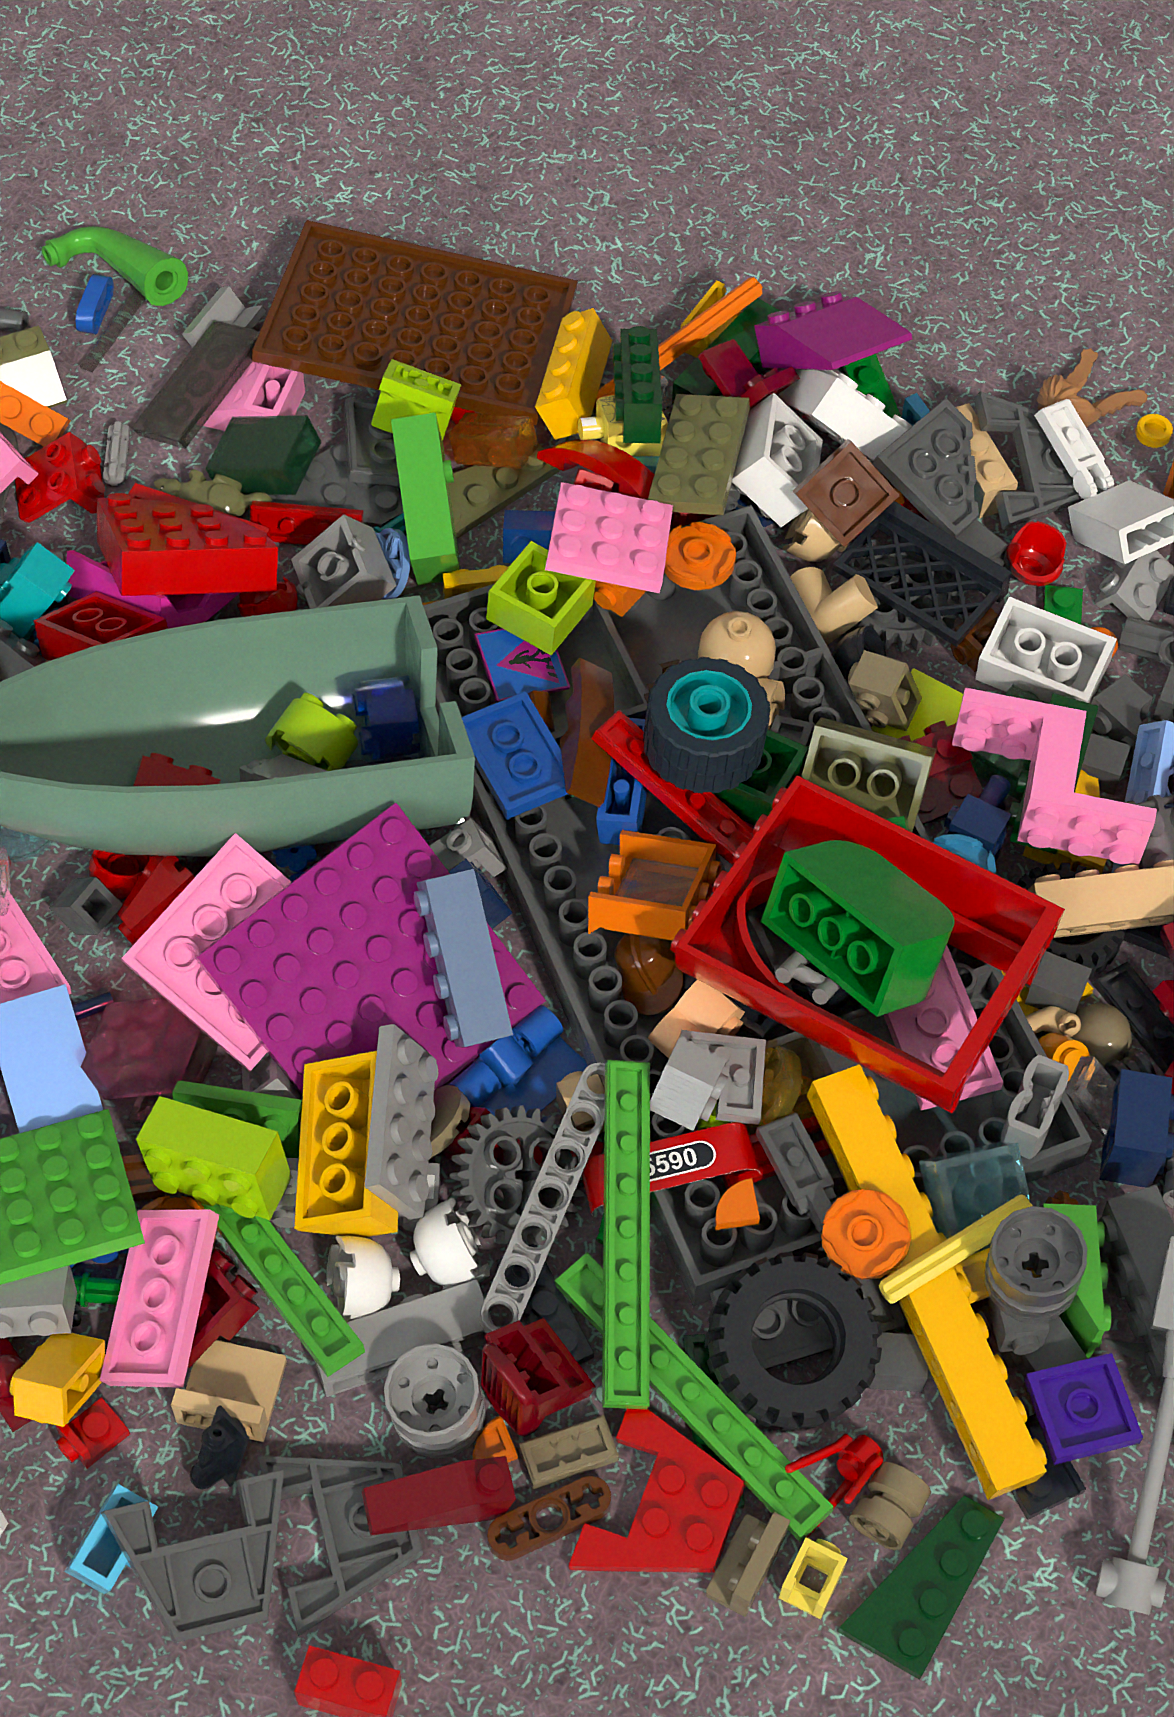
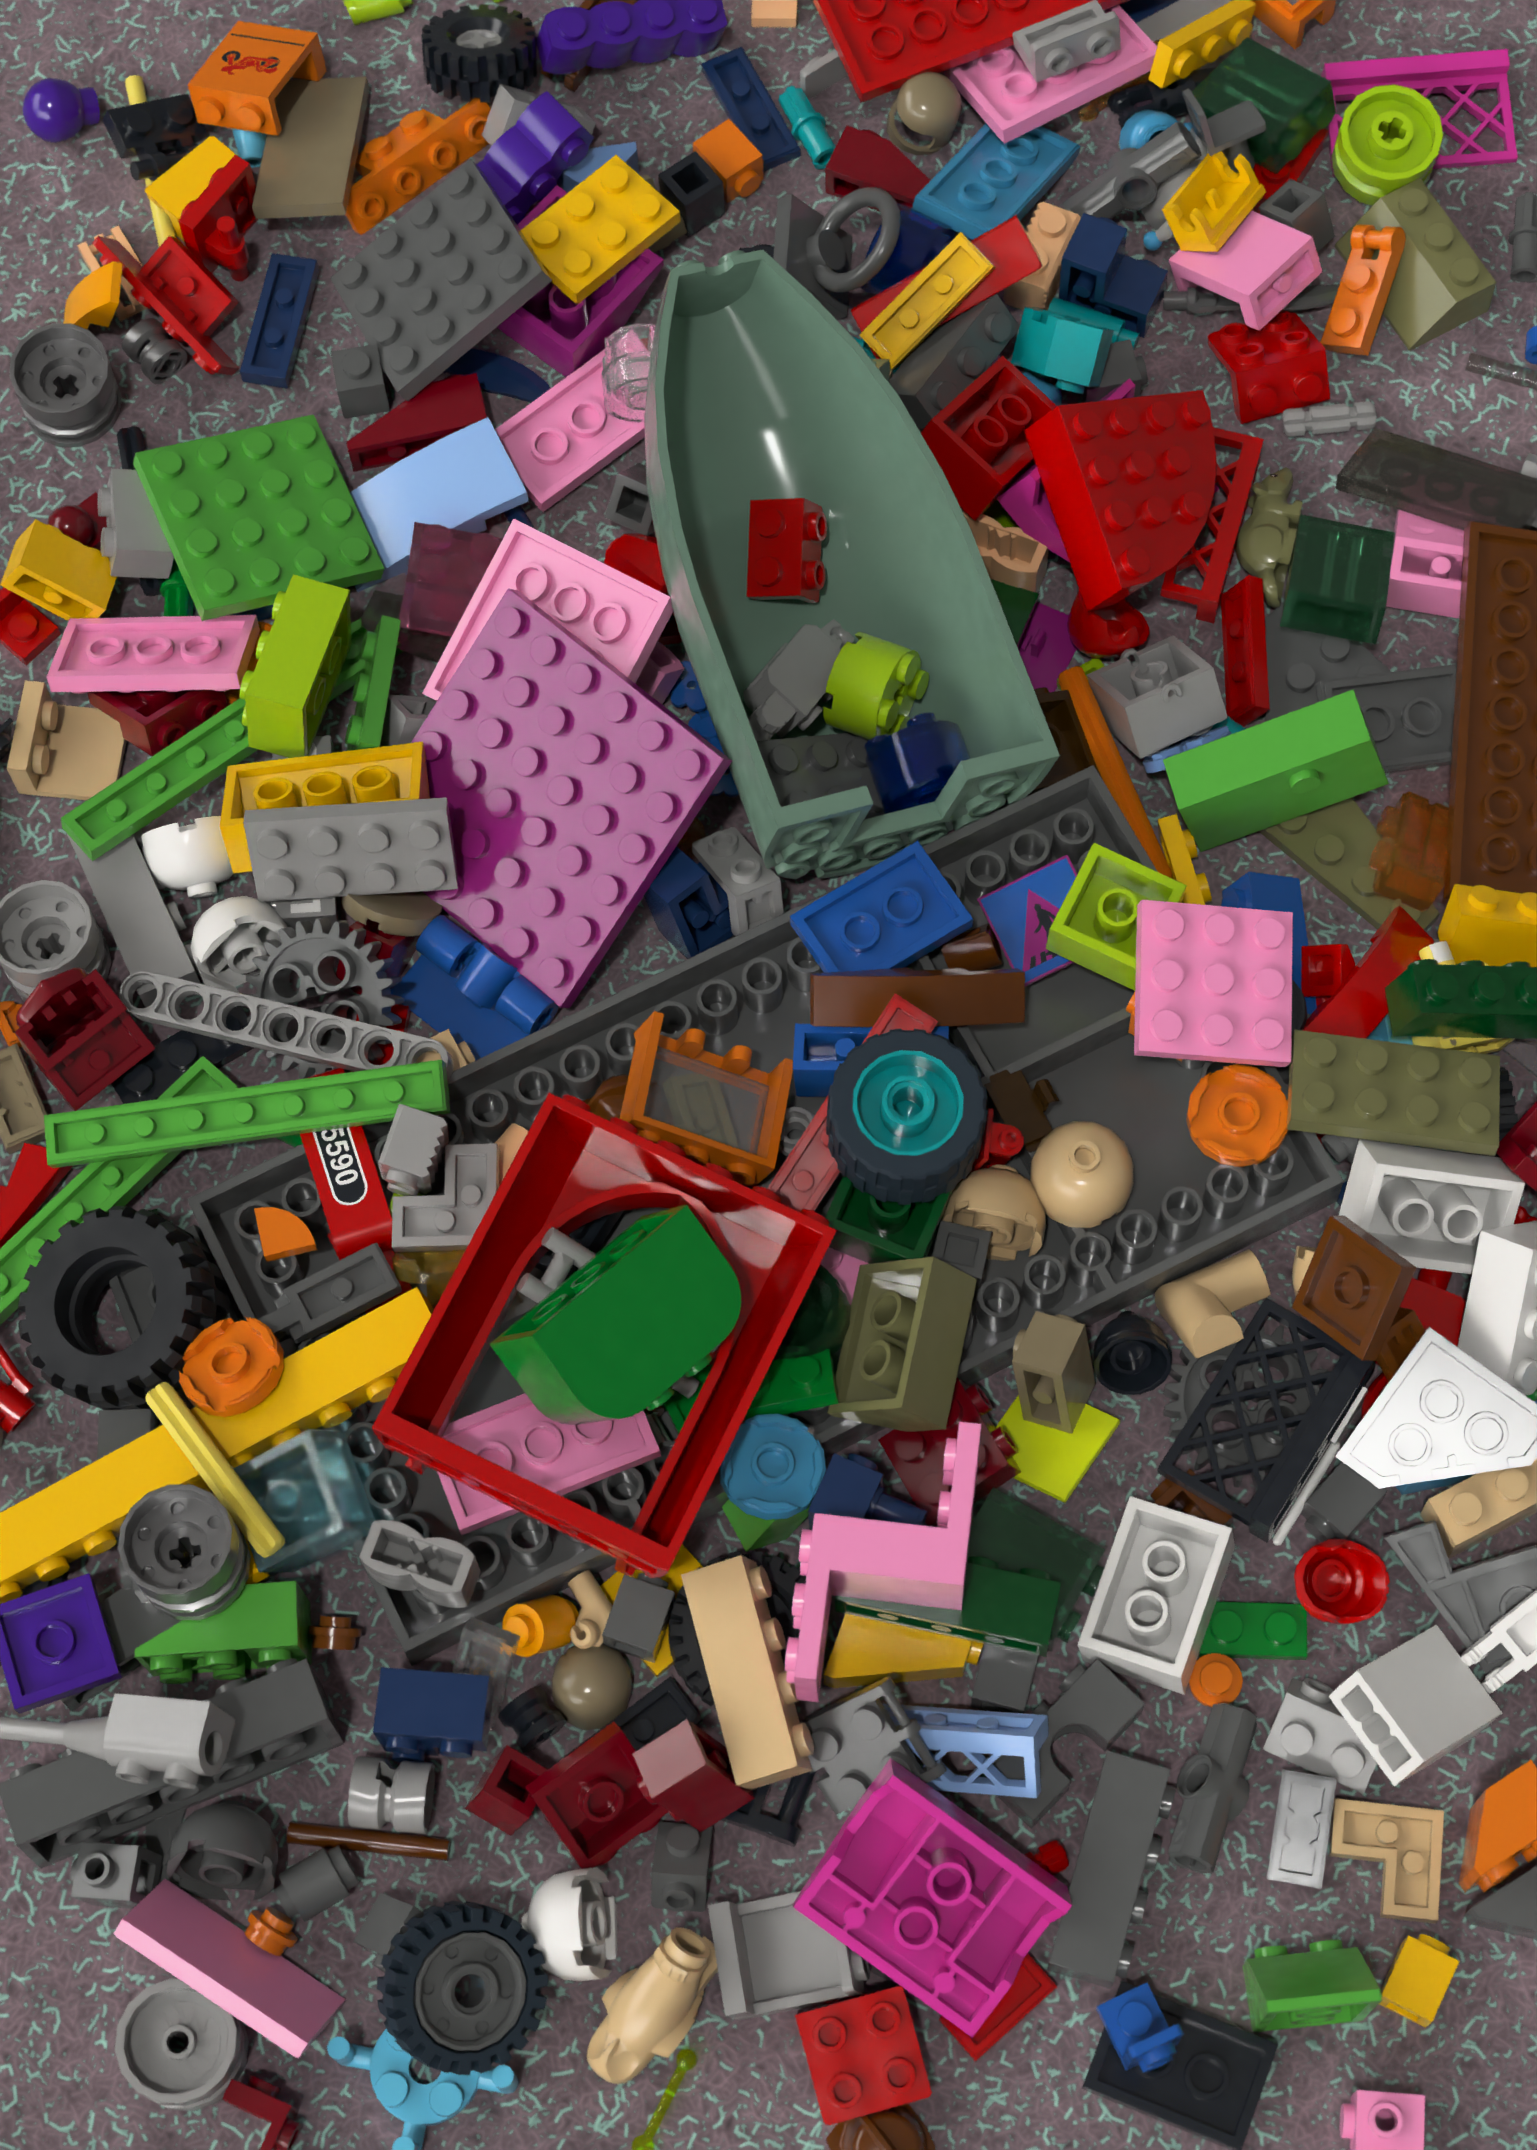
camera: 90 degrees right, 10 degrees up
(413, 392) = (1434, 730): lime bracket -> none
(463, 958) = (554, 880): sand blue brick -> none

